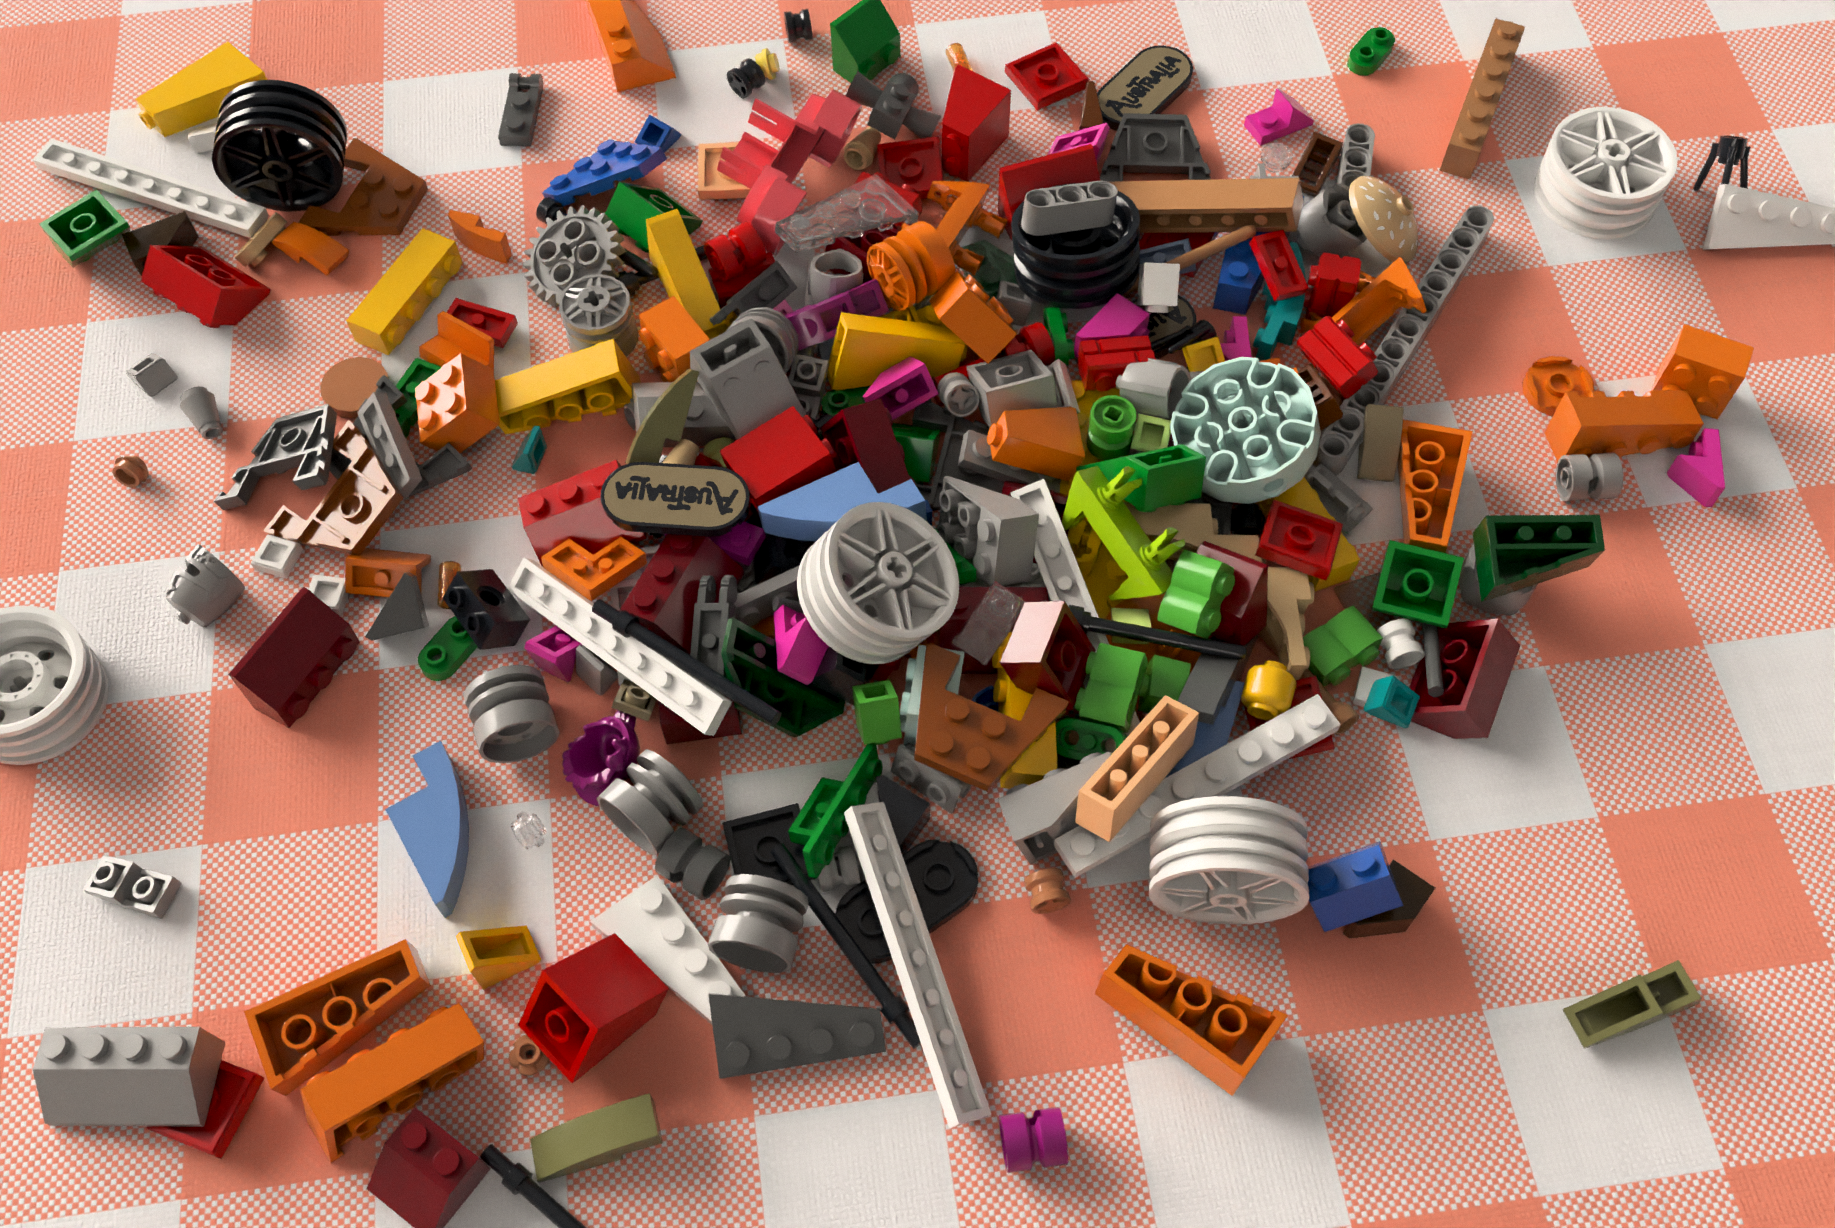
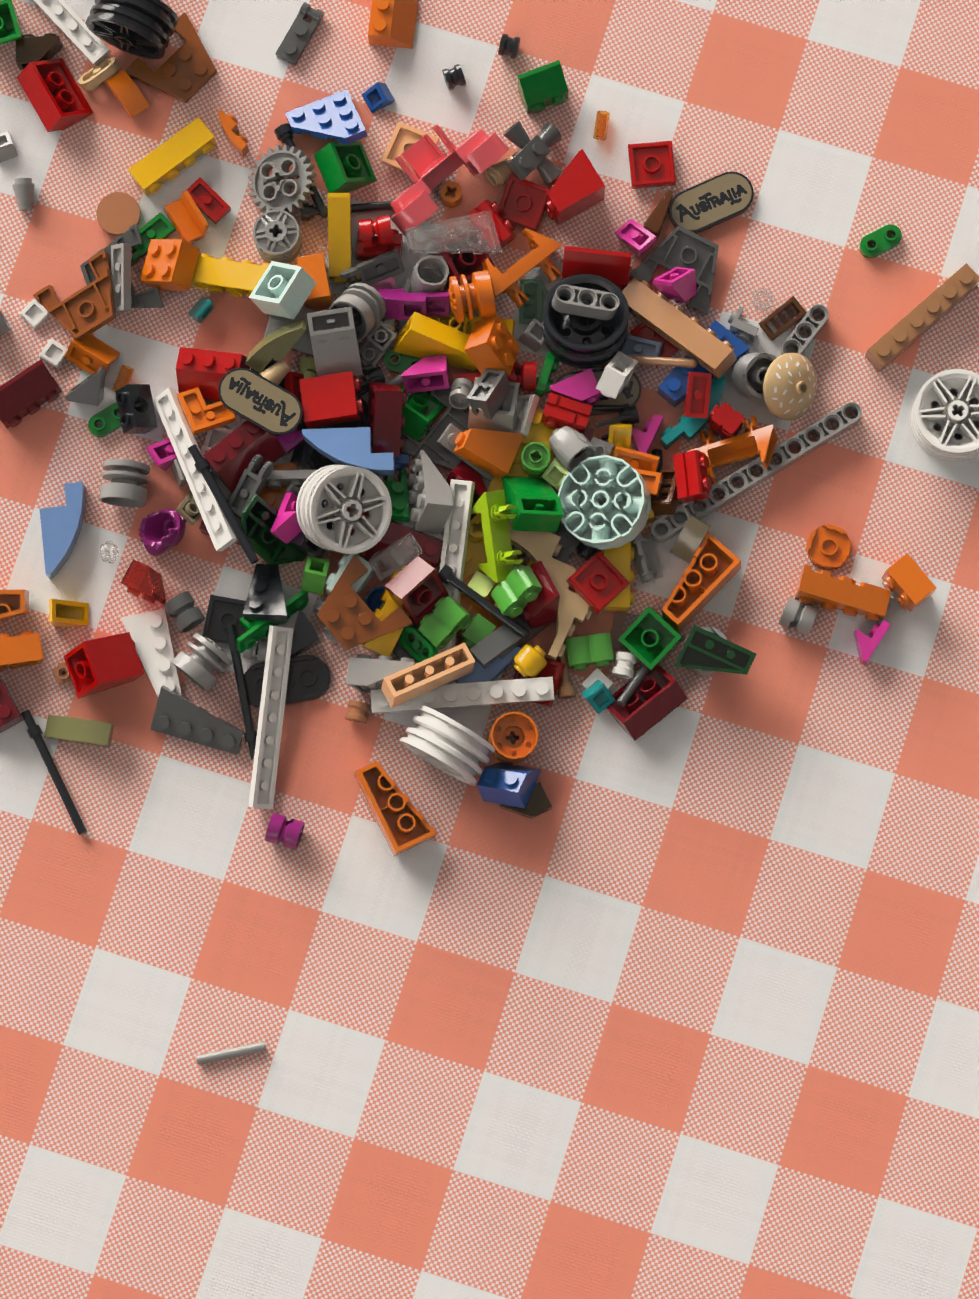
camera: 30 degrees right, 20 degrees up
(289, 443) = (68, 244): dark grey wing -> none
(606, 846) = (144, 581): none -> clear red slope
(639, 348) = (282, 290): none -> light aqua brick
(657, 794) = (176, 569): light grey wheel -> none
(768, 63) = (473, 71): light yellow plate -> none
(815, 190) = (449, 198): none -> orange wheel
(816, 776) = (265, 595): none -> black wing
(1003, 356) = (489, 392): none -> dark grey hinge
(1166, 164) = (677, 284): none -> dark pink slope
(1279, 120) = (783, 270): dark pink slope -> none
(1325, 801) = (521, 728): none -> orange wheel
(1632, 1005) = (617, 909): olive slope -> none

